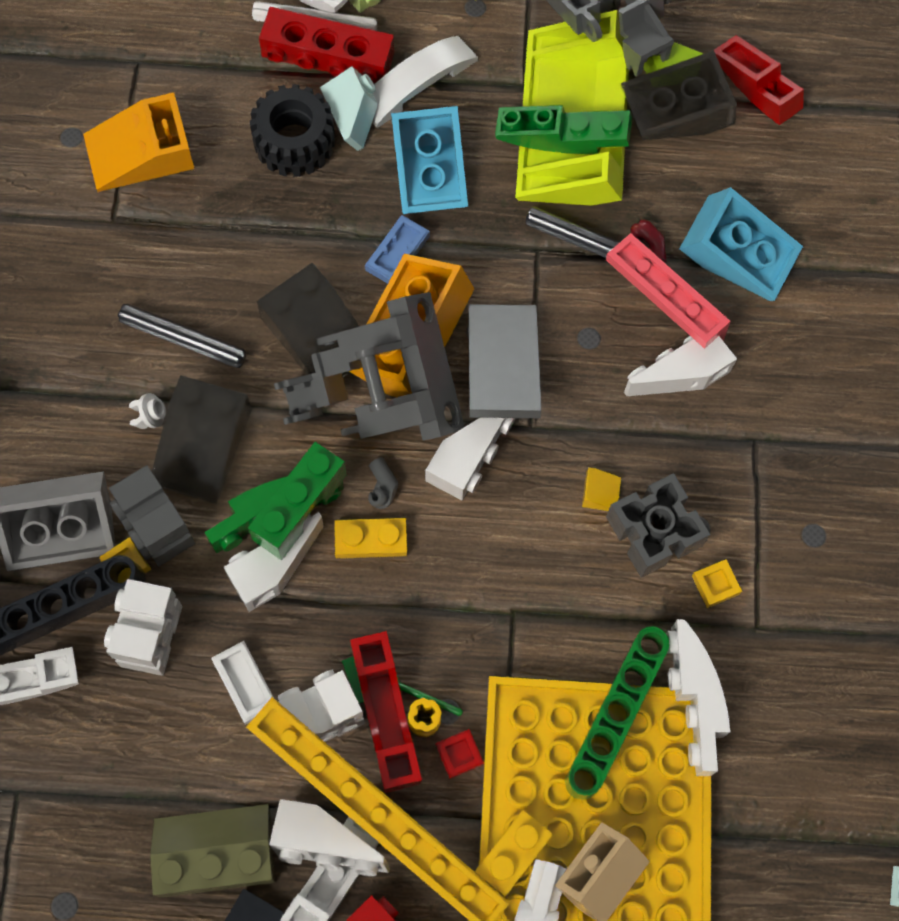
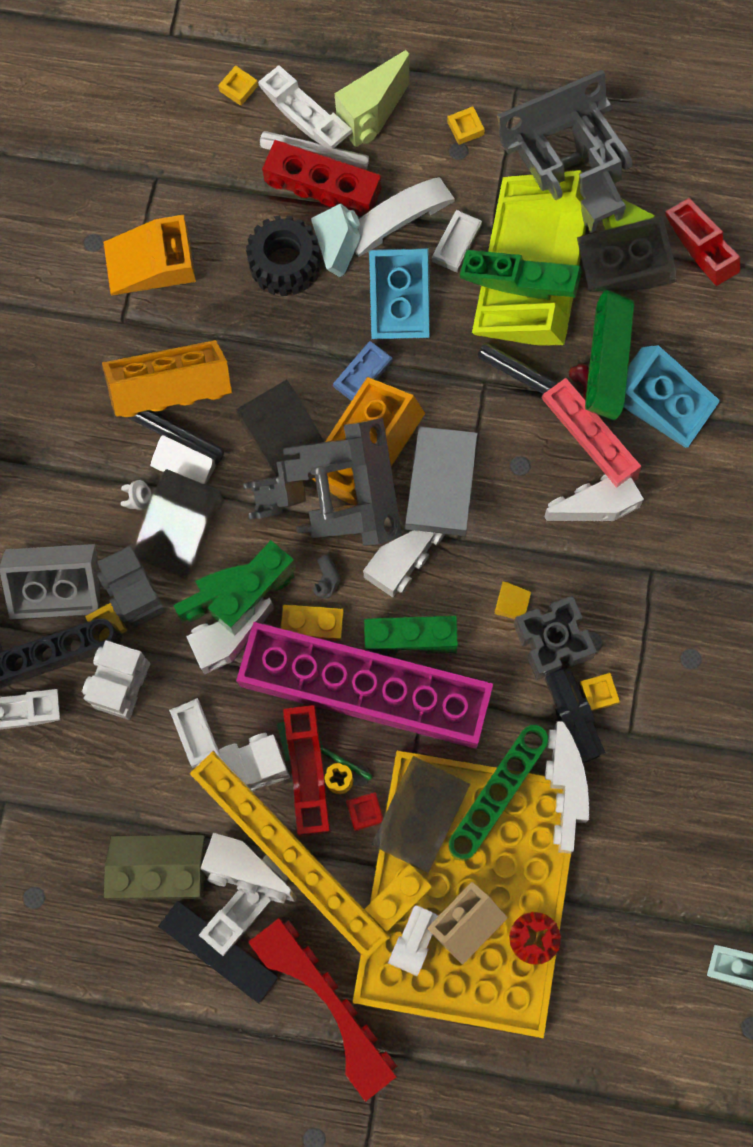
camera: 15 degrees right, 5 degrees up
(172, 276) = (167, 378): none -> light orange slope
(198, 365) = (182, 460): none -> white slope
(443, 602) = (364, 685): none -> dark pink brick
(485, 101) = (456, 240): none -> white tile
(509, 535) = (428, 634): none -> green arch
(529, 748) = (420, 814): none -> clear smoke slope
(665, 880) = (532, 953): none -> red gear
(676, 205) = (609, 355): none -> green beam
(692, 606) = (575, 714): none -> black piece

